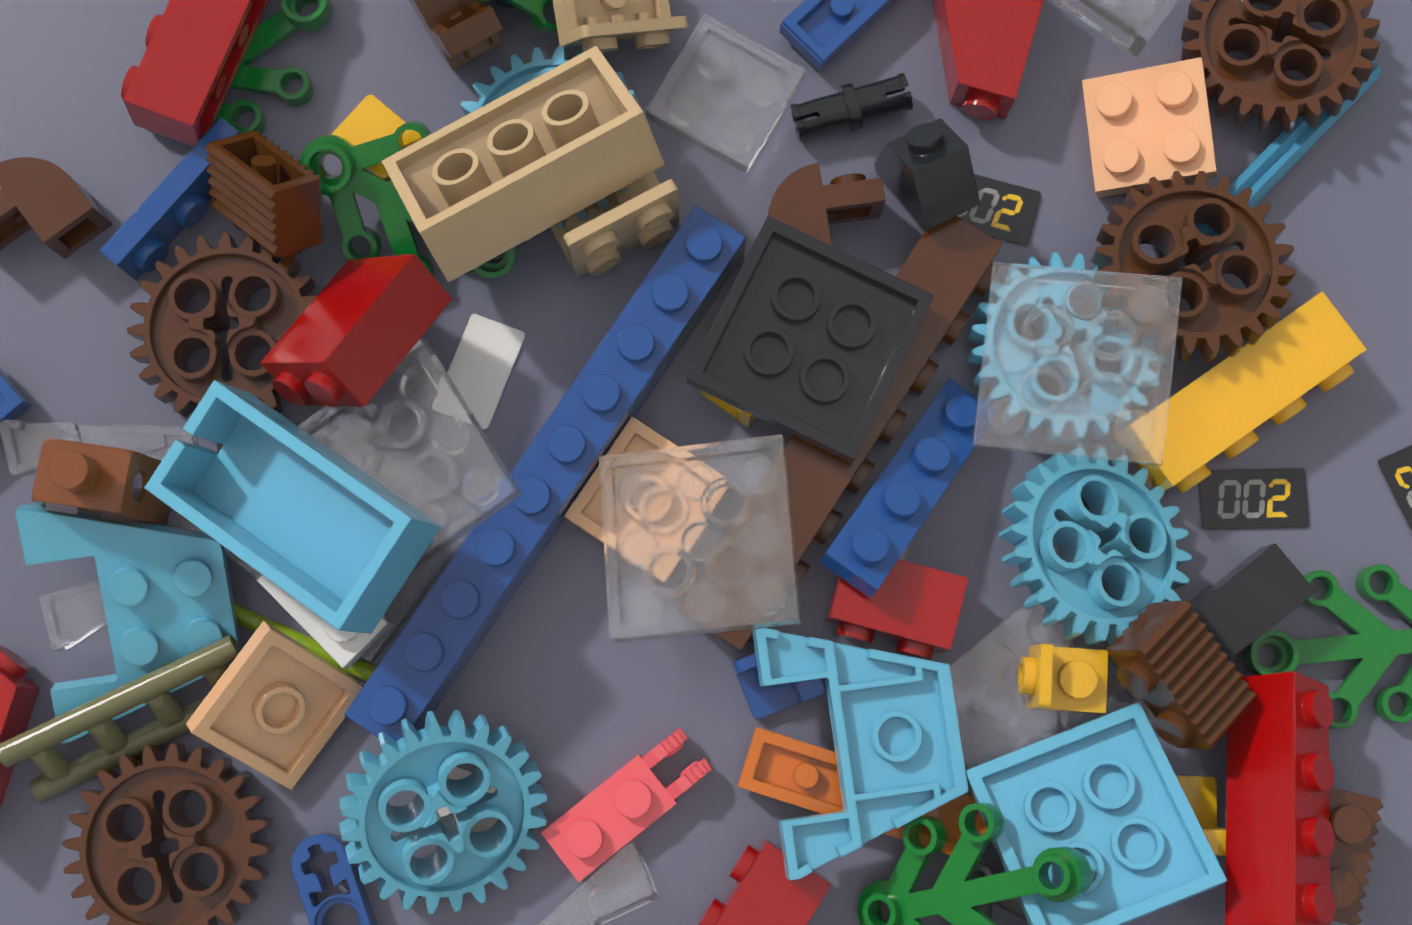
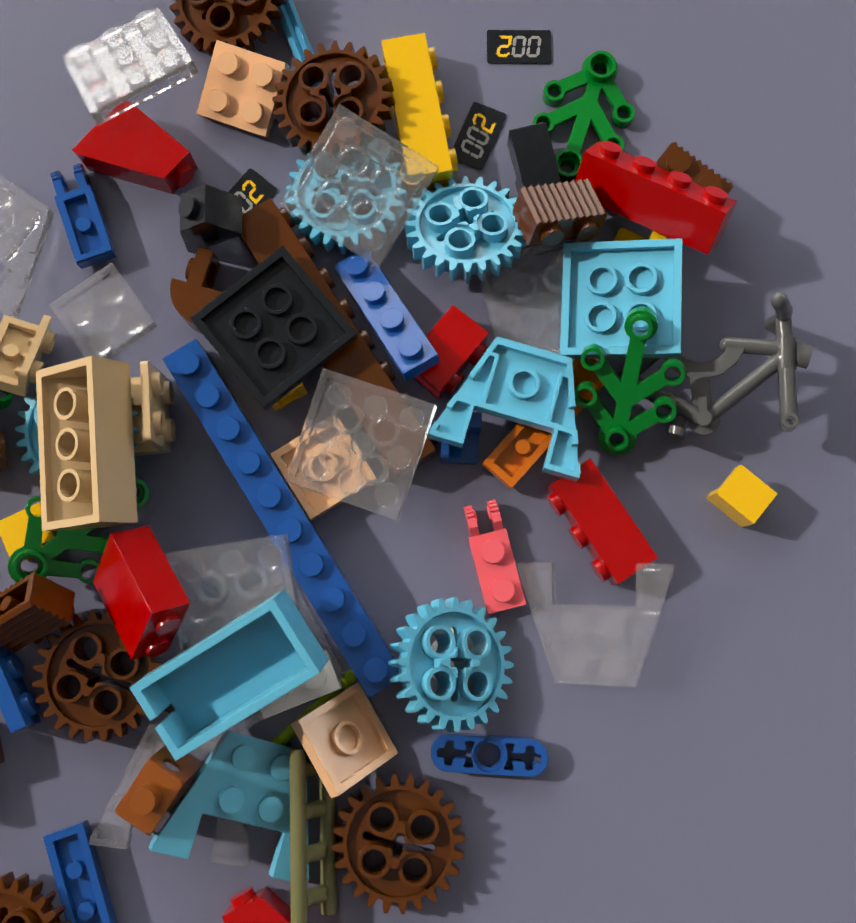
camera: 65 degrees left, 0 degrees up
(484, 364) = (194, 526): white sticker -> none
(851, 106) = (147, 247): black pin -> none
(1064, 679) = (532, 278): yellow bracket -> none

